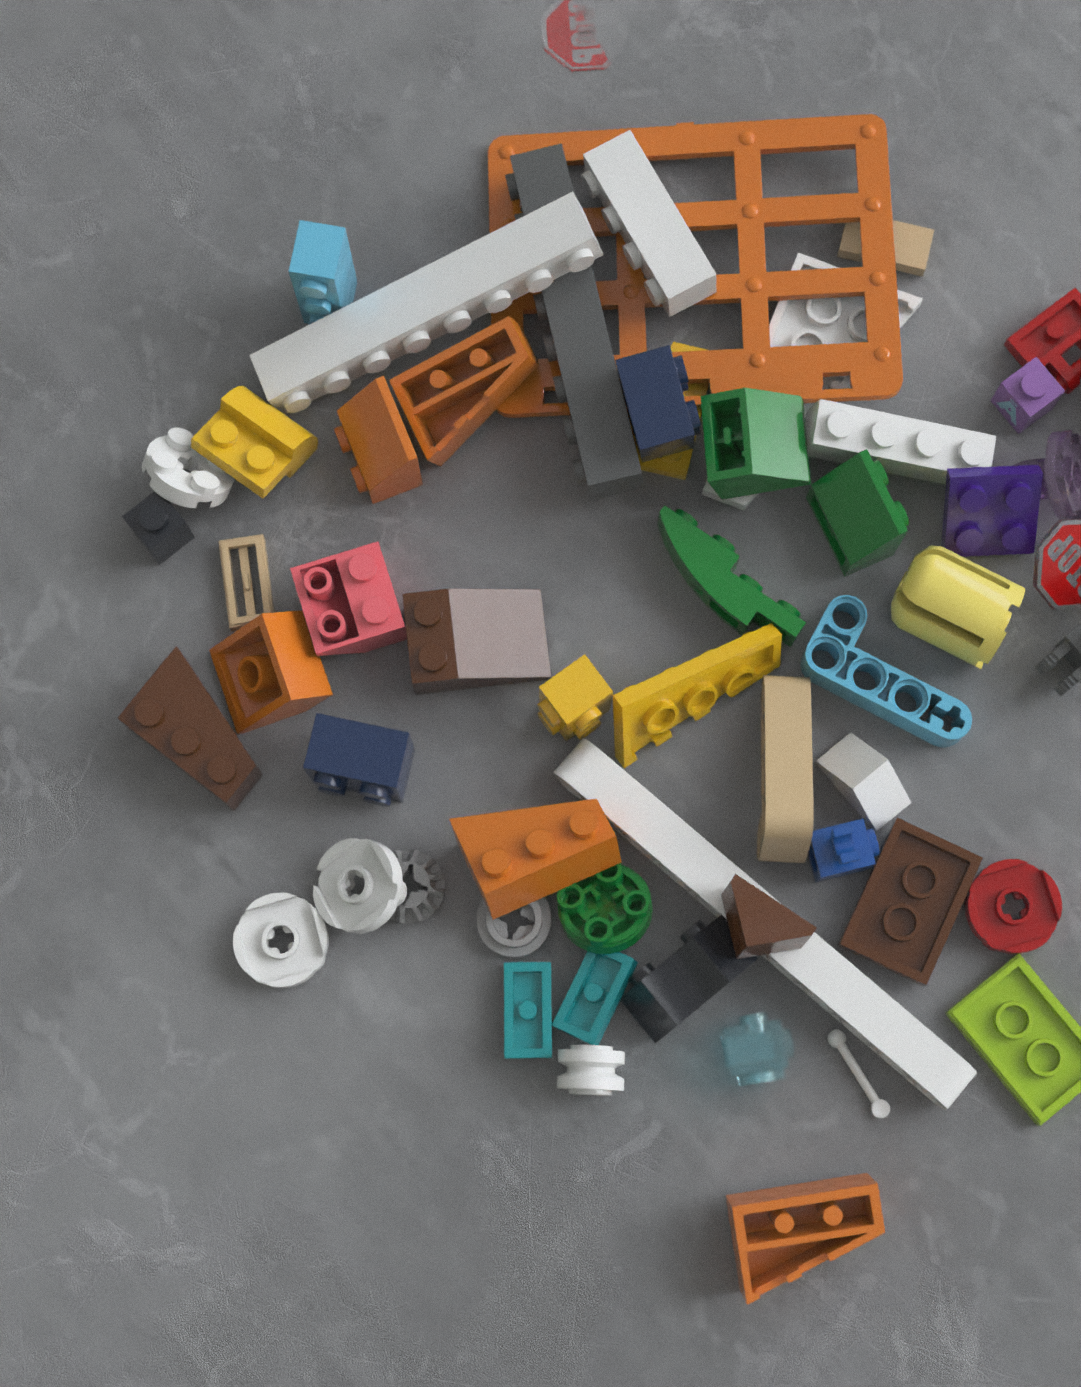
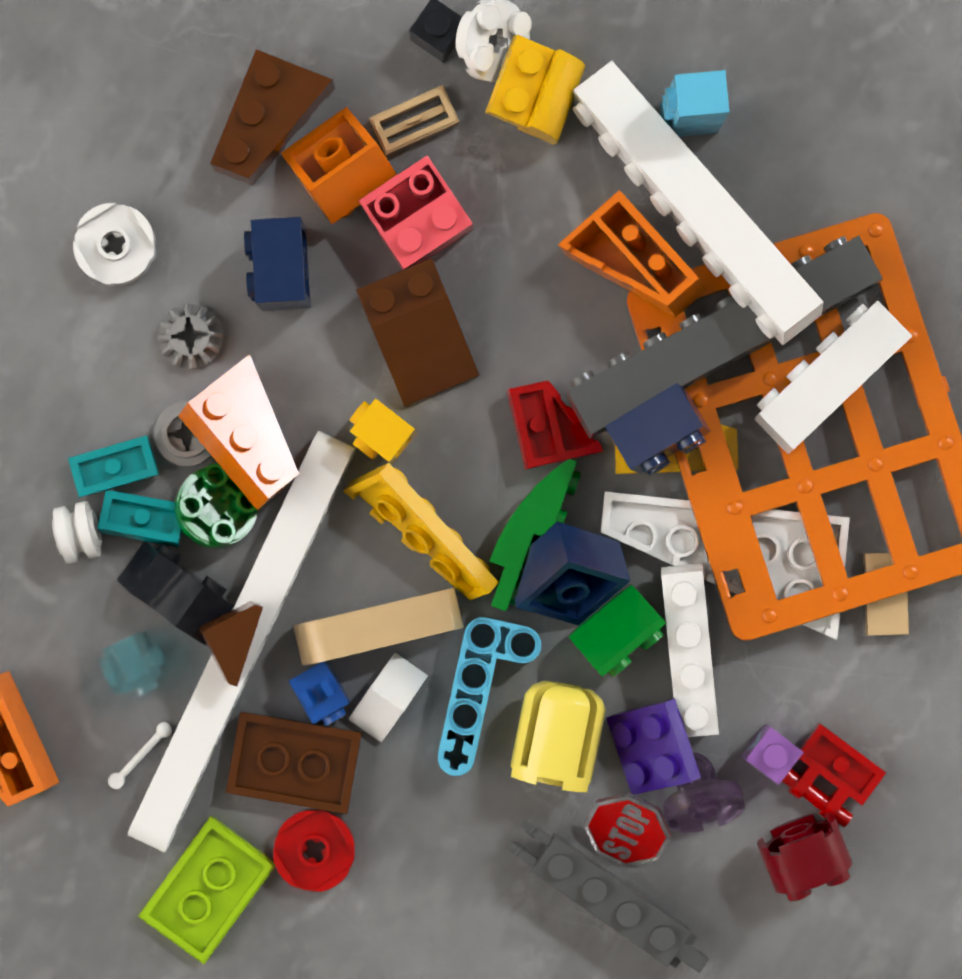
camera: 70 degrees right, 10 degrees up
(378, 443) = (564, 197): orange slope -> none
(381, 892) = (178, 315): white plate -> none
(616, 532) = (547, 427): none -> red wing
(754, 442) = (651, 524): green slope -> none
(783, 544) = (571, 574): none -> dark blue slope

